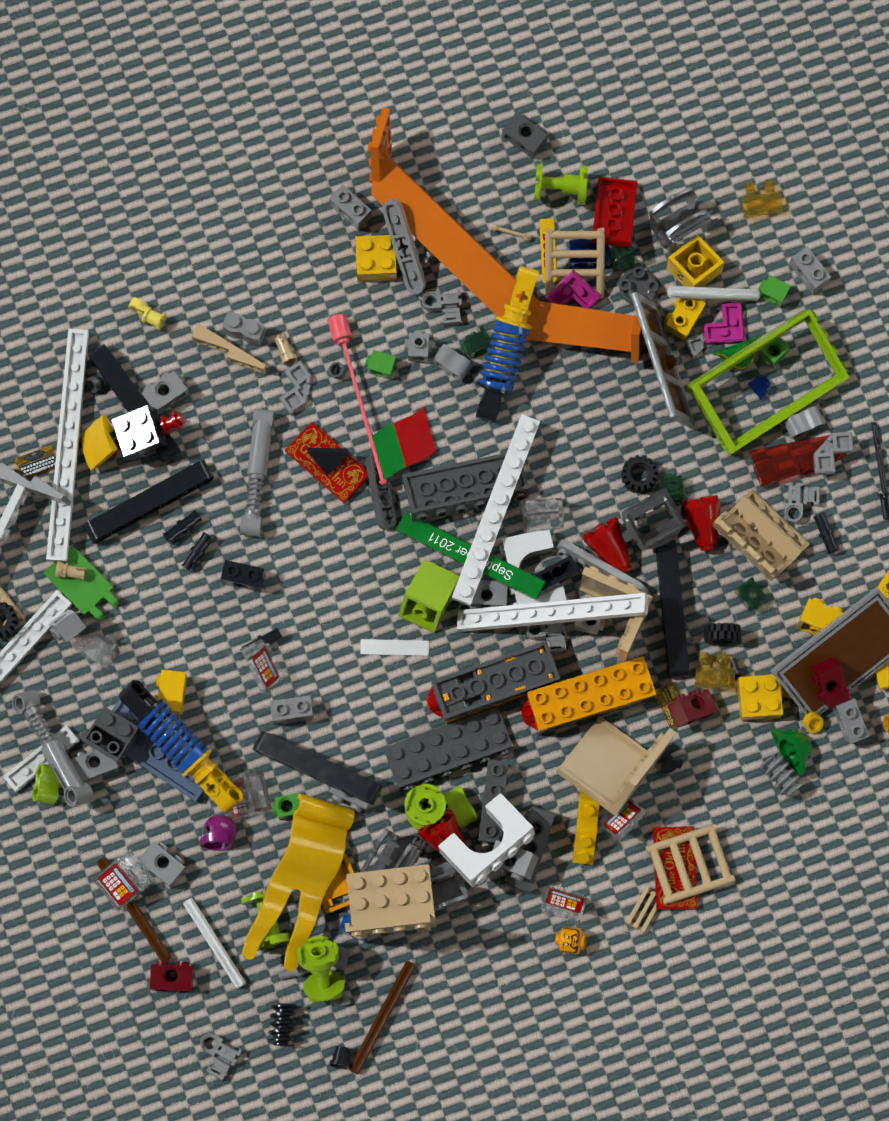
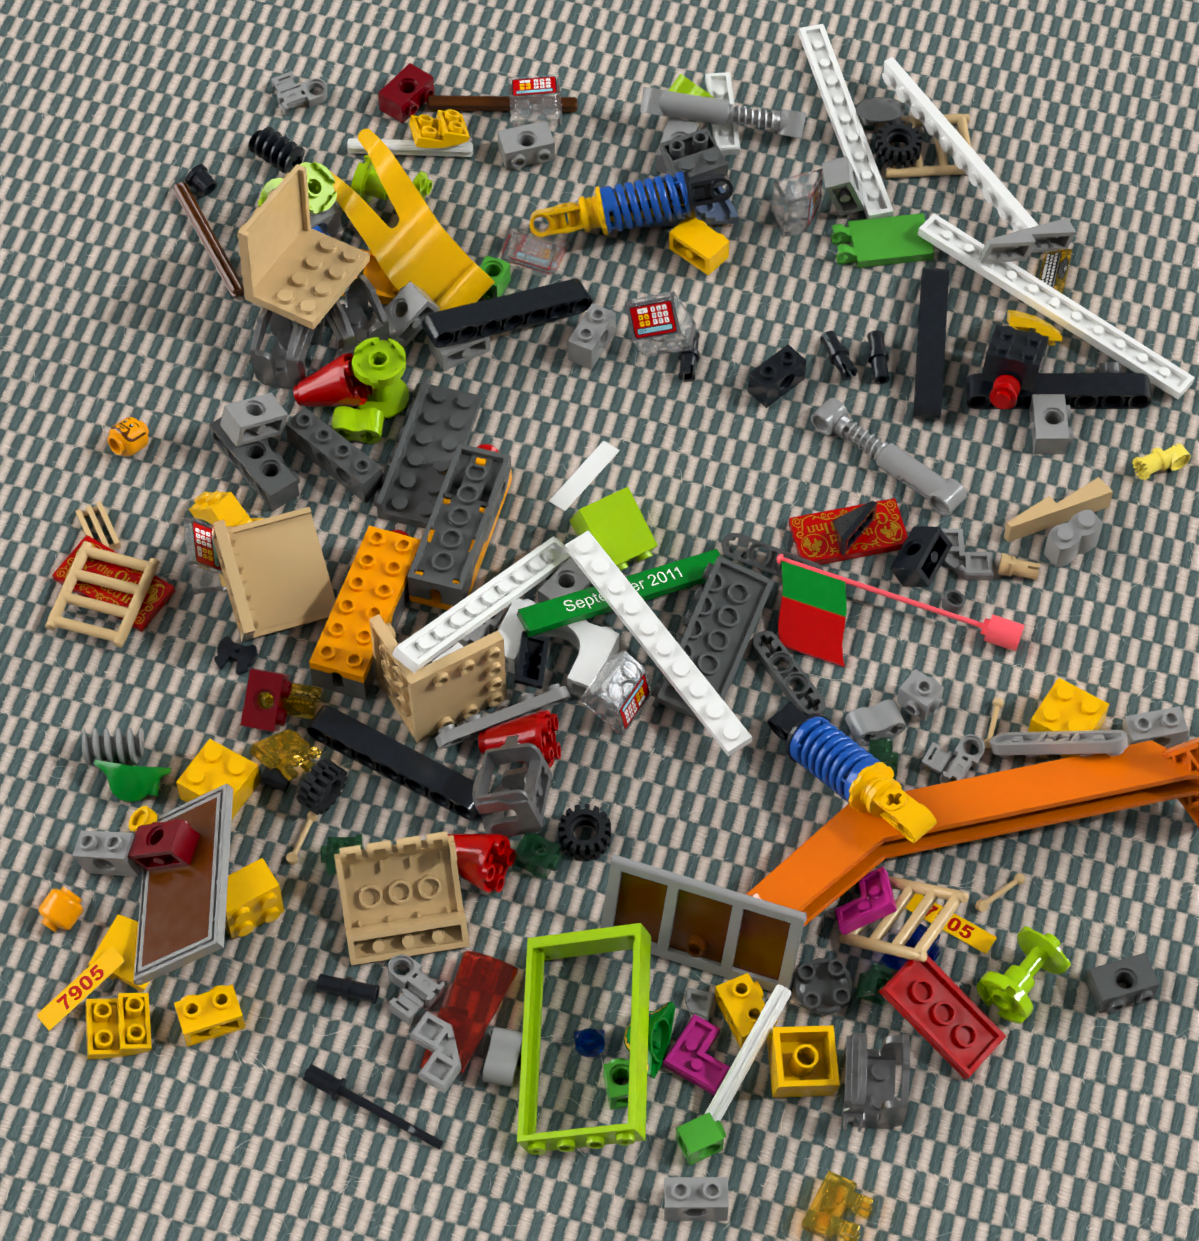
camera: 125 degrees right, 20 degrees down
(65, 570) = (909, 226): tan pin -> none
(190, 930) = (444, 131): none -> yellow slope
(221, 832) = (515, 203): magenta helmet -> none
(329, 397) = (921, 556): none -> black brick
(349, 829) = (419, 305): none -> light grey brick
(381, 364) = (927, 648): bright green brick -> none
(387, 306) = (997, 703): none -> tan hinge
(457, 433) = (786, 677): none -> dark grey beam
(476, 866) = (277, 423): white arch -> none
(563, 904) = (168, 446): slope -> none
(771, 625) = (292, 857): none -> tan hinge

